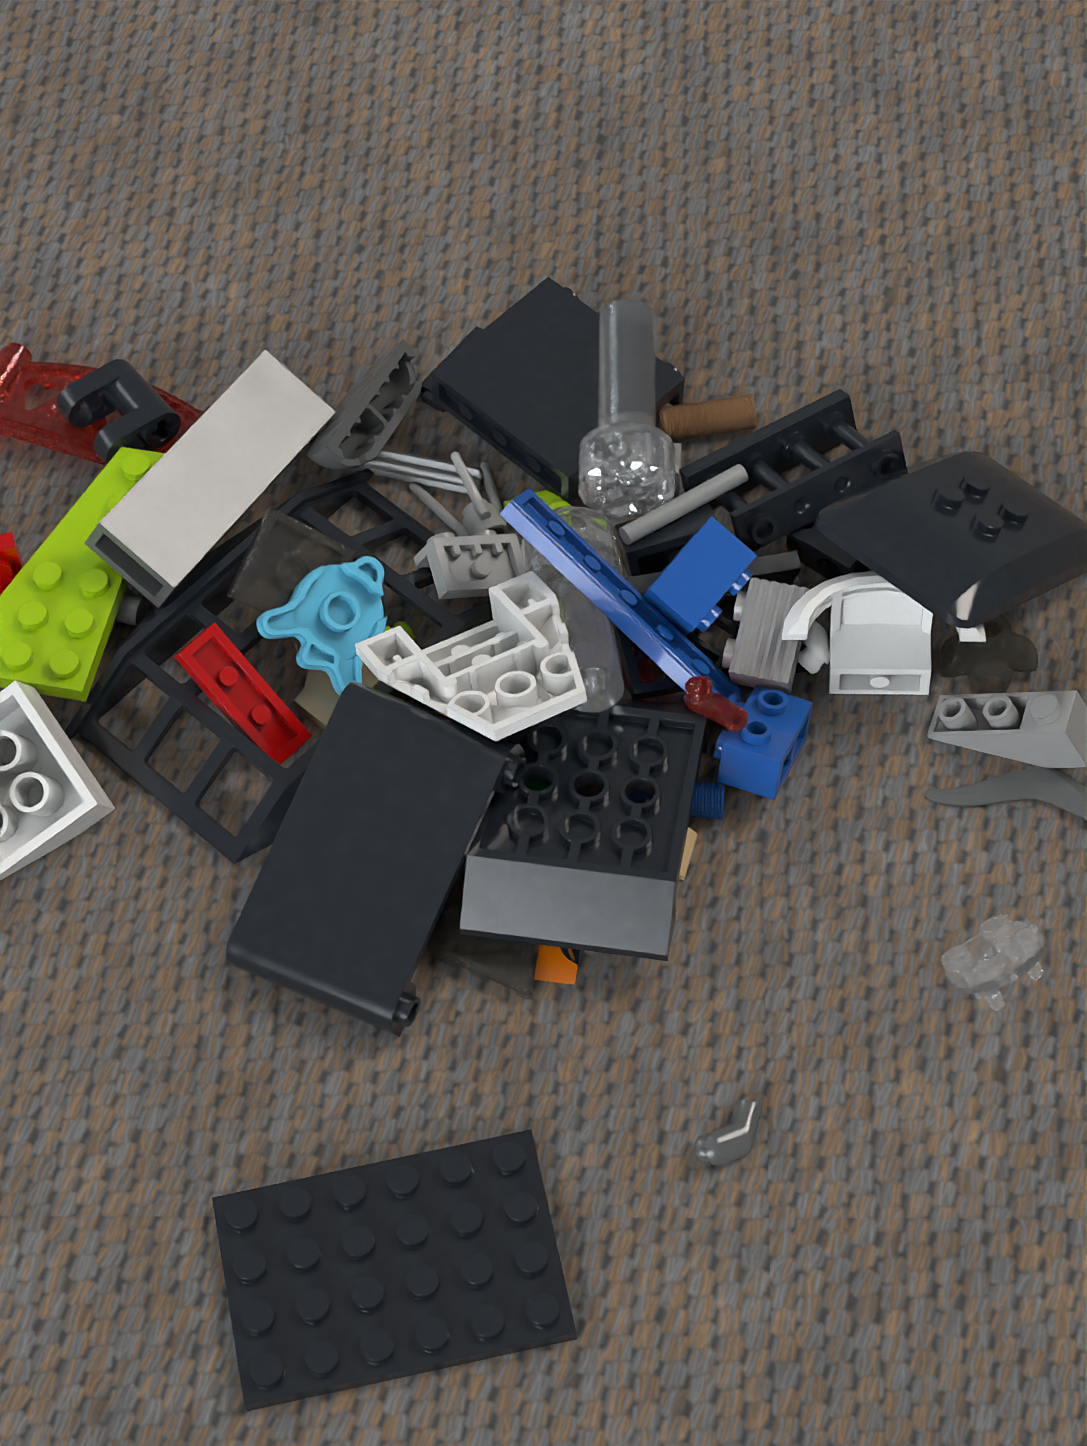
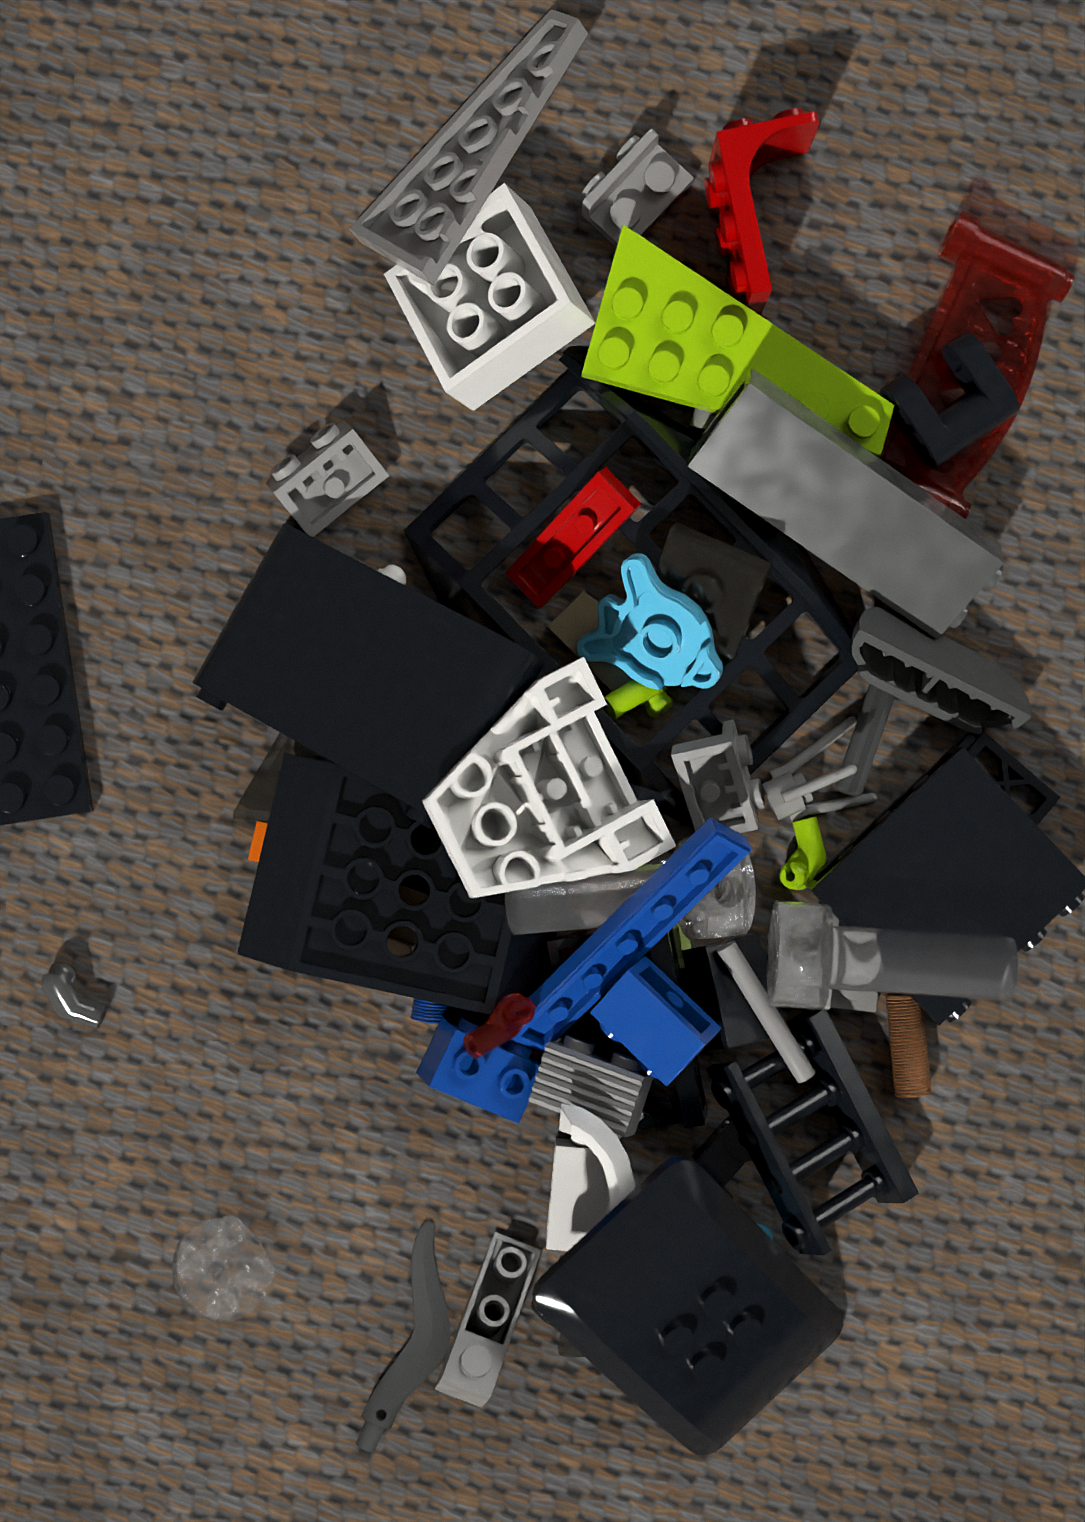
camera: 85 degrees right, 30 degrees up
(176, 930) = (326, 477): none -> light grey bracket

